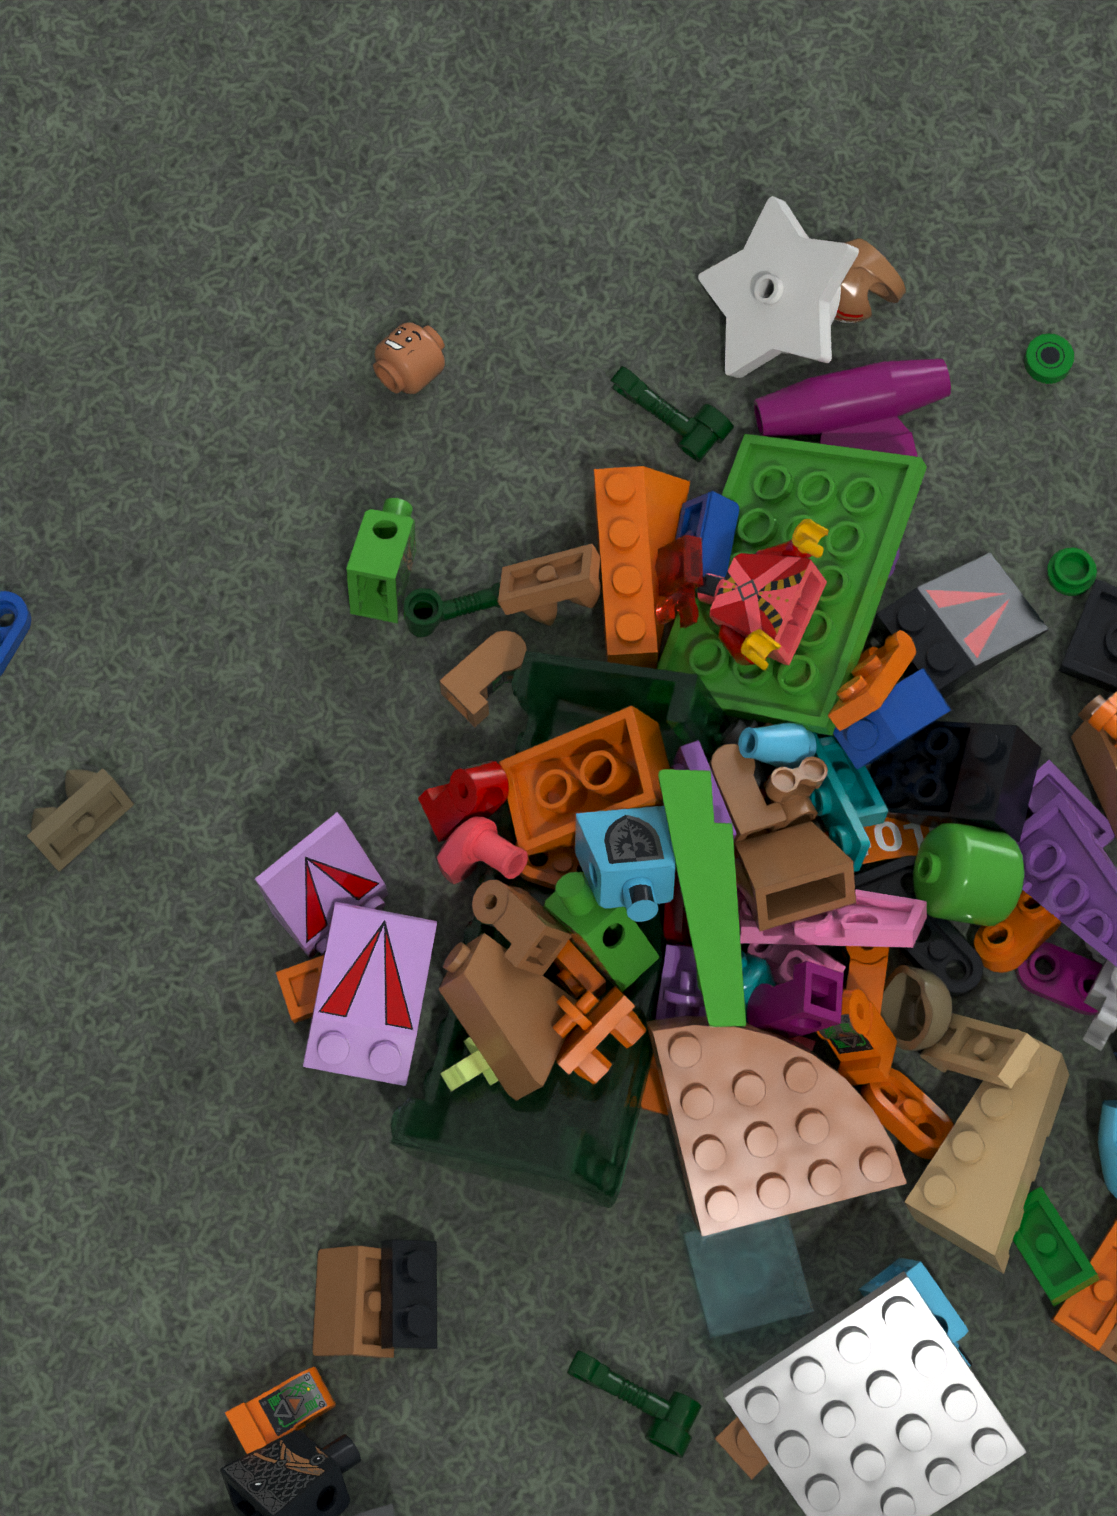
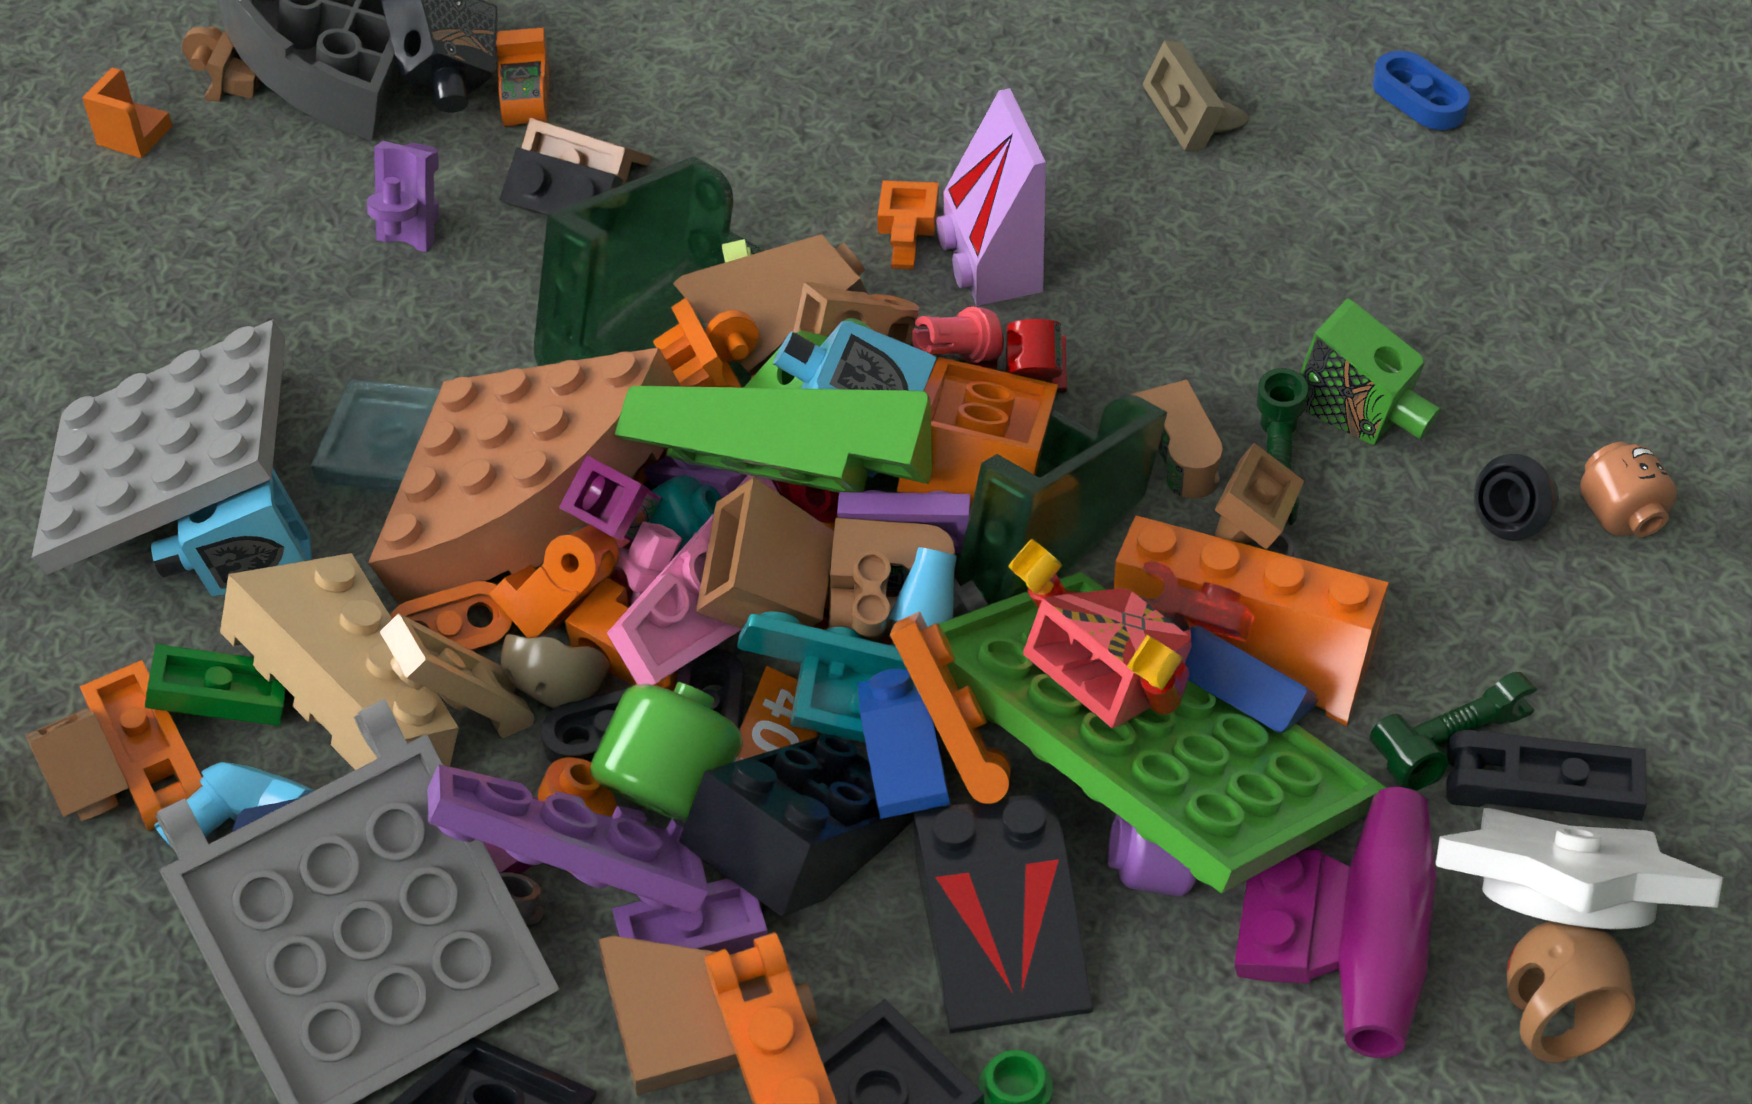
camera: 115 degrees right, 25 degrees down
(370, 994) = (867, 201): lavender slope -> none
(447, 427) = (1515, 497): none -> black cone
(495, 1410) = (405, 194): none -> medium lavender hips
(671, 1418) = (307, 336): dark green brick -> none
(684, 344) = (1547, 774): none -> black plate

